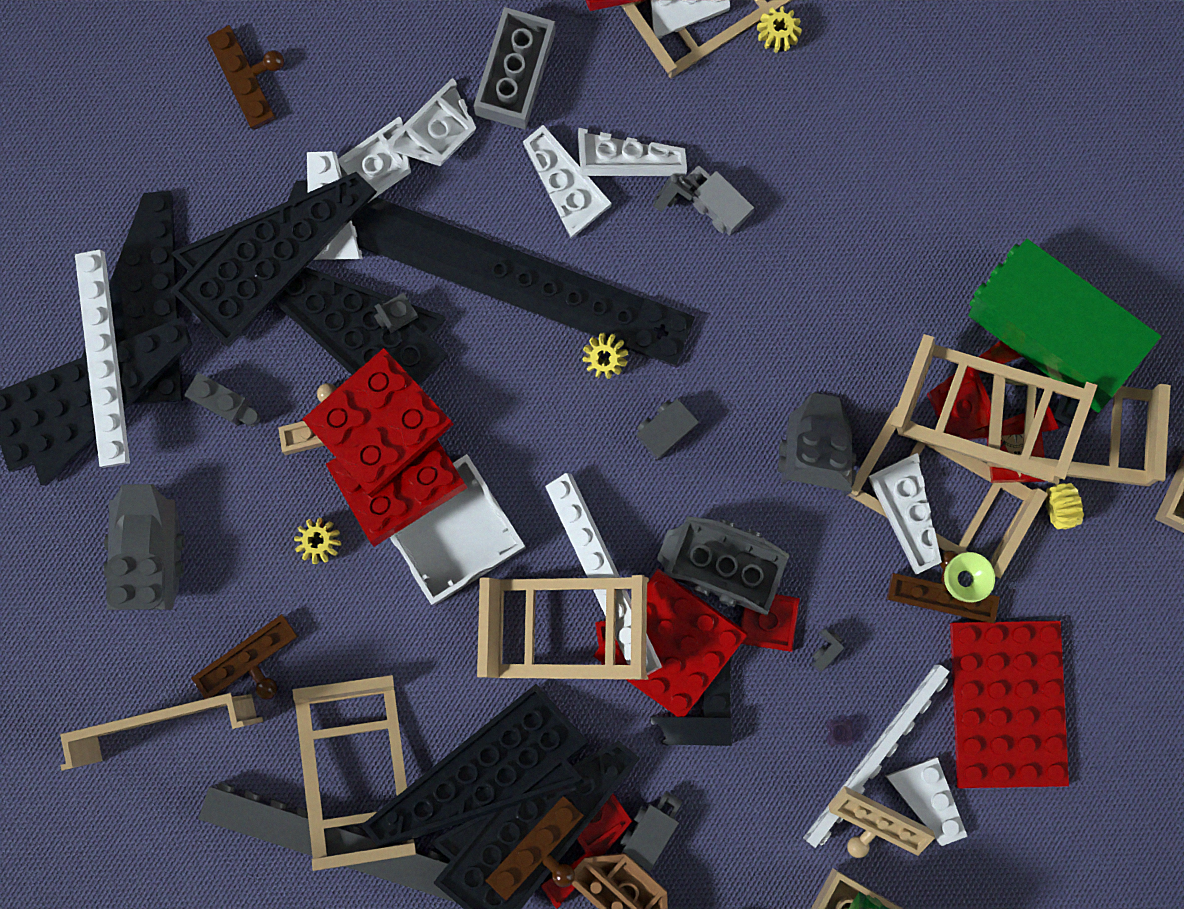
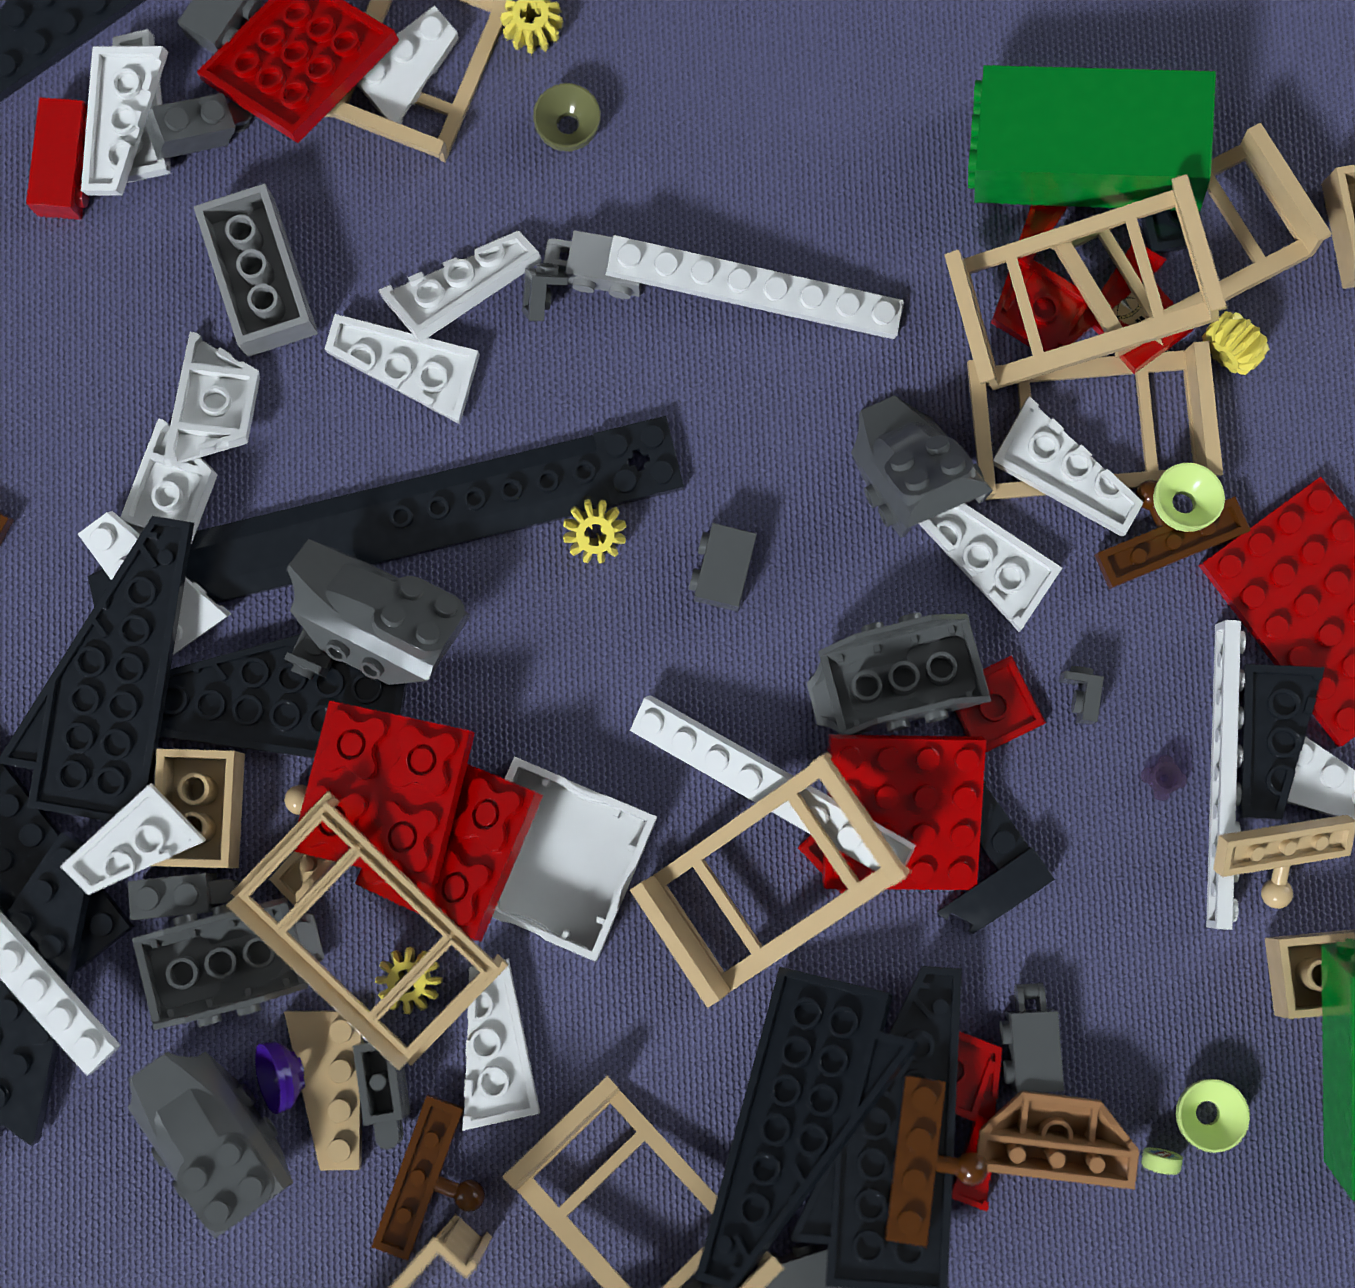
camera: 30 degrees left, 0 degrees up
(206, 543) = (278, 1076): none -> dark purple piece
(219, 350) = (132, 840): none -> white wing
(222, 457) = (217, 966): none -> dark grey slope
(235, 565) = (331, 1085): none -> tan wing
(260, 592) = (381, 1094): none -> dark grey brick
(266, 358) = (209, 794): none -> tan brick
(268, 505) = (319, 978): none -> tan piece
(337, 620) = (498, 1064): none -> white wing
(441, 317) = (372, 618): none -> dark grey slope
(763, 89) = (564, 101): none -> olive piece
(800, 277) = (754, 287): none -> white plate
(829, 535) = (995, 561): none -> white wing
(924, 749) = (1273, 734): none -> black wing

